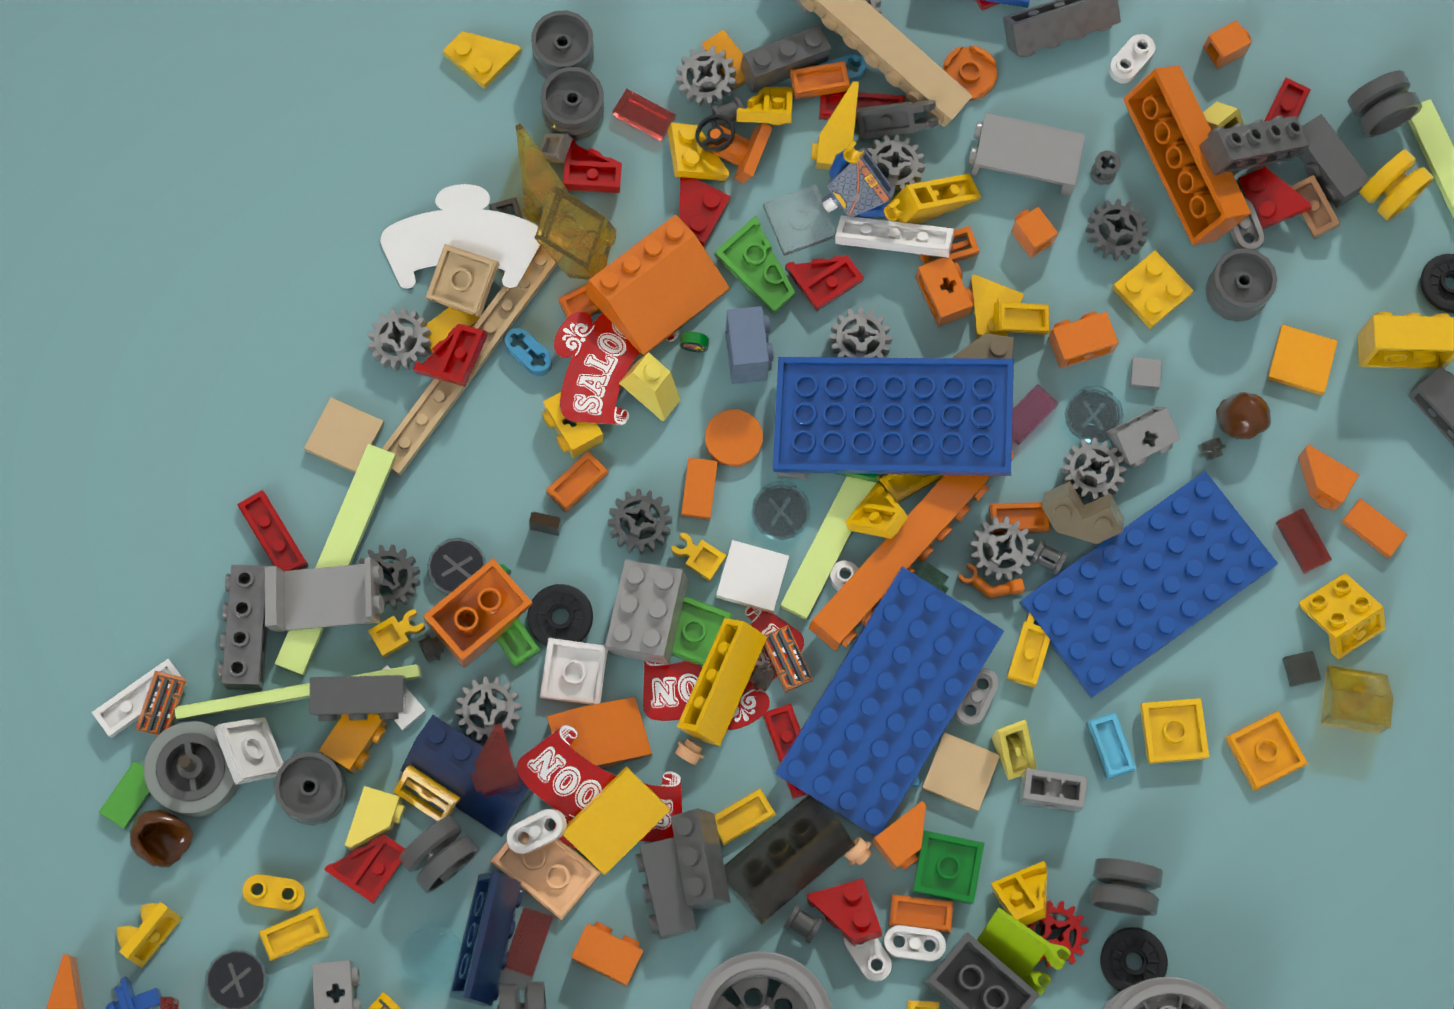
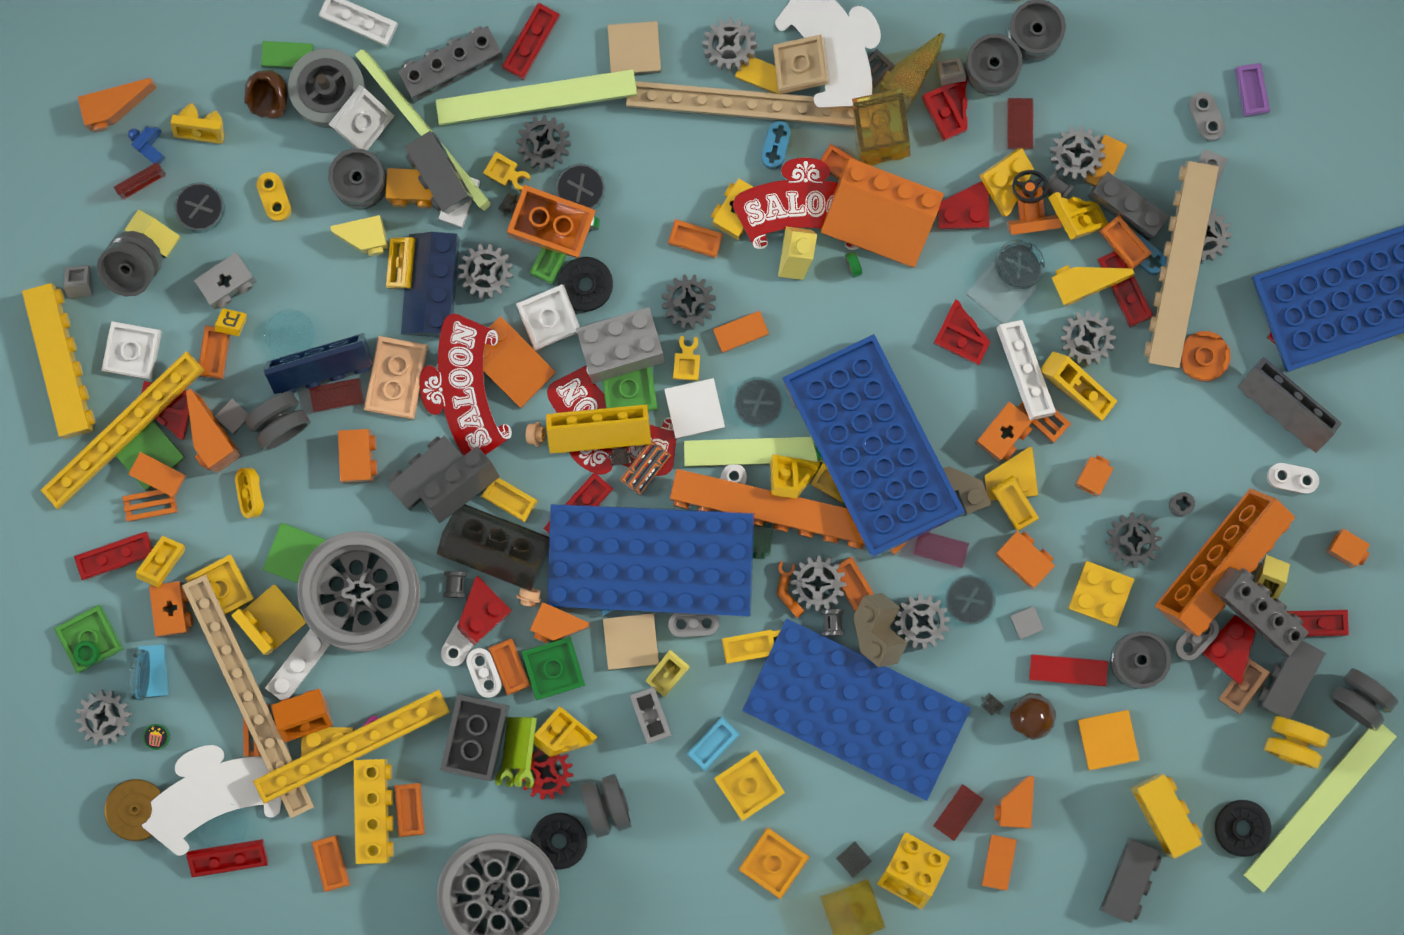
camera: 75 degrees right, 10 degrees up
(160, 703) = (360, 36): tile -> none
(294, 934) = (253, 228): yellow tile -> none
(323, 596) = (500, 104): light grey panel -> none
(369, 867) = (326, 253): red wing -> none
(438, 854) = (358, 298): dark grey wheel -> none
(454, 356) = (737, 93): red wing -> none
(495, 766) = (441, 299): clear red slope -> none
(538, 831) = (415, 357): white plate -> none
(545, 523) = (648, 233): dark brown tile -> none
(615, 820) = (453, 408): yellow tile -> none
(733, 438) = (795, 336): orange tile -> none
(747, 344) = (870, 305): sand blue brick -> none
(754, 264) = (943, 276): bright green wing -> none
(784, 187) = (1019, 264): none -> clear light blue tile
(859, 186) = (1048, 322): torso -> none
(871, 337) = (939, 382): light grey gear -> none
(894, 119) = (1125, 318): dark grey hinge -> none
(1028, 150) = (1158, 436): light grey panel -> none
(1128, 436) = (984, 646): light grey brick -> none
(1213, 360) = (1068, 670): none -> red tile

